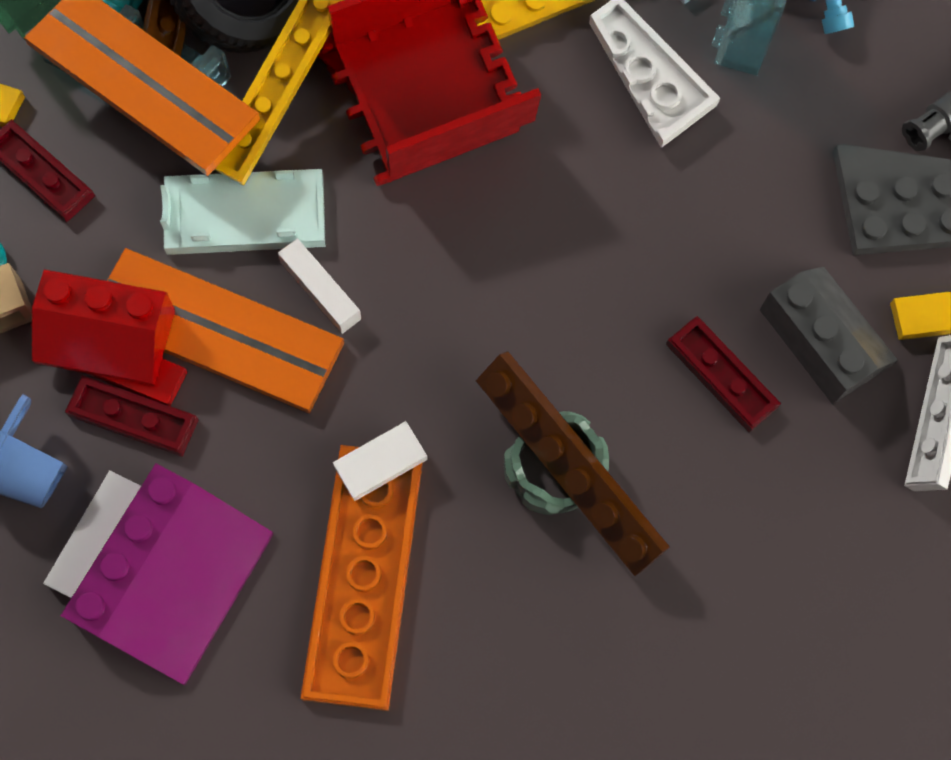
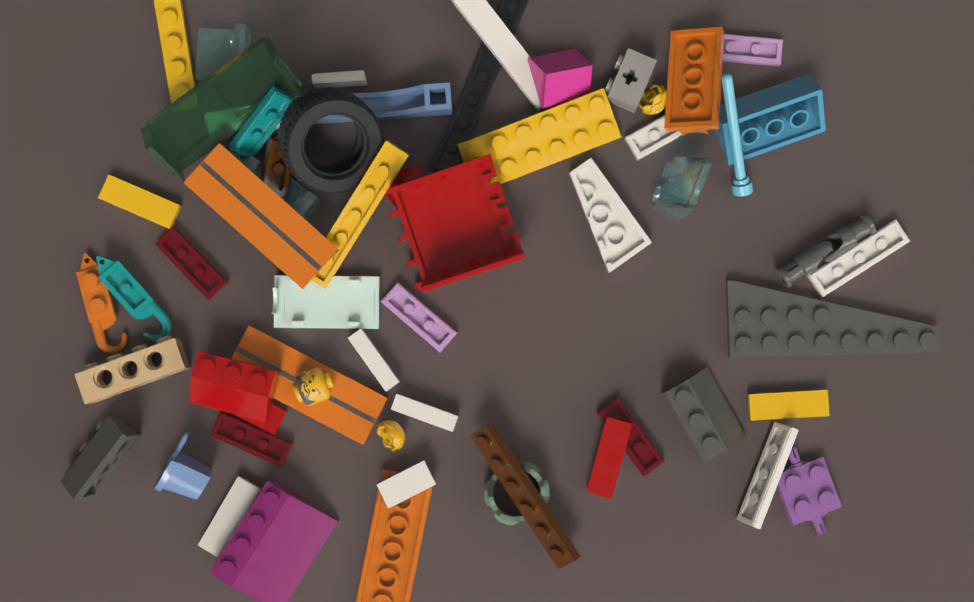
camera: 10 degrees right, 15 degrees up
(226, 321) = (313, 386): none -> yellow head
(352, 390) = (392, 434): none -> yellow plate
(385, 224) = (418, 317): none -> lavender tile
(402, 356) = (424, 412): none -> white piece
(695, 401) = (609, 457): none -> red tile

